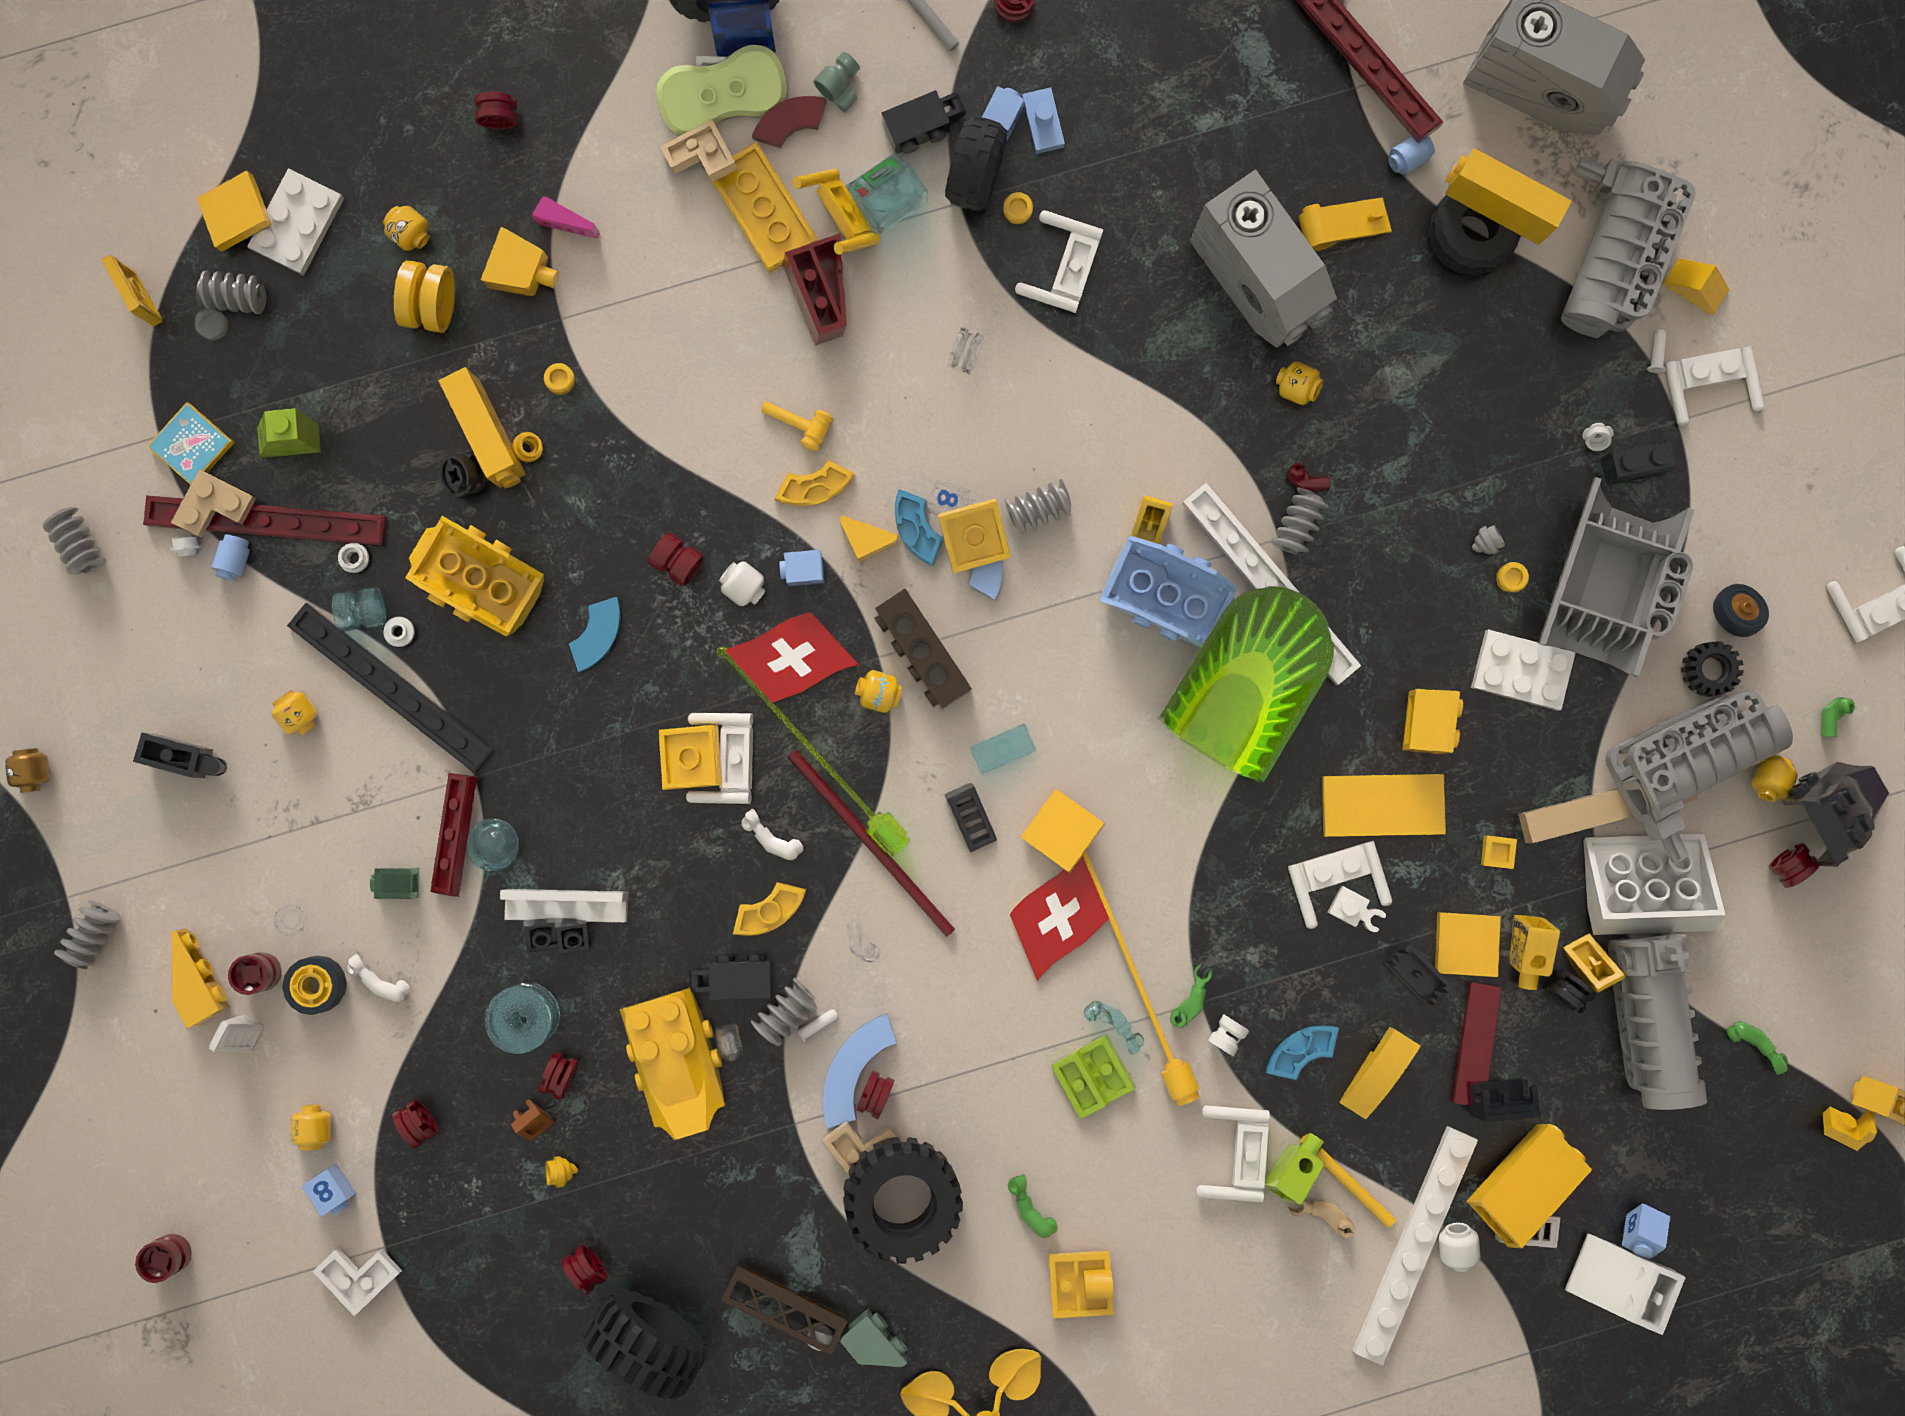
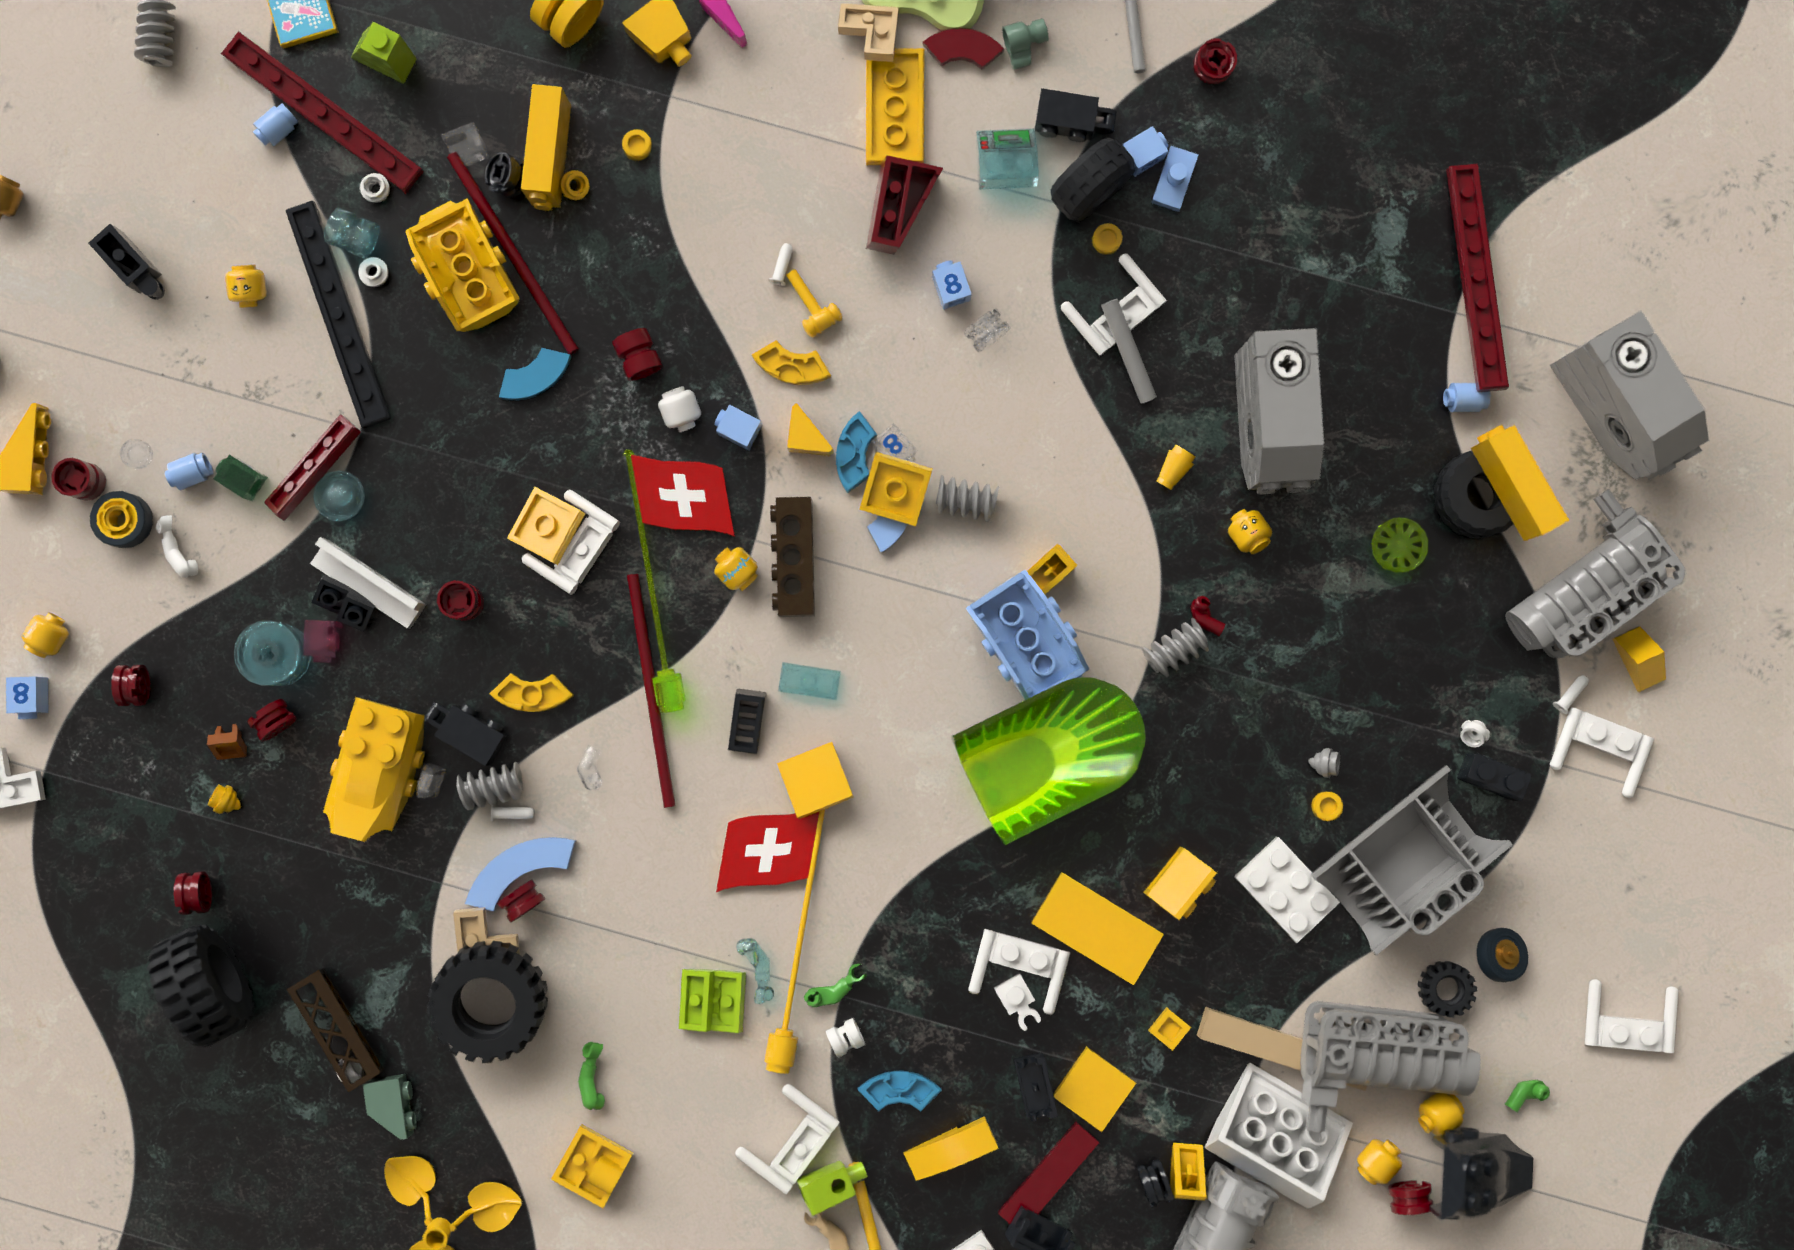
camera: 35 degrees right, 0 degrees up
(185, 545) = (244, 92): white plate -> none
(209, 496) = (289, 64): tan plate -> none
(236, 1035) = (32, 520): white slope -> none
(346, 905) = (188, 471): none -> light blue brick
(410, 472) = (467, 143): none -> clear panel
(510, 539) = (512, 253): none -> dark red piece
(557, 979) = (321, 640): none -> clear pink brick
(657, 869) = (460, 600): none -> dark red wheel
(752, 405) = (782, 265): none -> white piece
(771, 844) = (567, 638): white arm -> none
(842, 208) = (959, 149): yellow plate -> none
(909, 330) = (951, 284): none -> light blue brick
(1098, 292) = (1128, 351): none -> light grey piece
(1200, 367) = (1176, 465): none -> yellow cone
(1253, 561) = (1117, 659): white plate -> none
(1343, 222) = (1361, 415): yellow door -> none
(1433, 315) = (1399, 545): none -> clear neon green wheel
(1533, 949) = (1145, 1127): yellow torso -> none
(1748, 852) = (1379, 1161): none -> yellow head

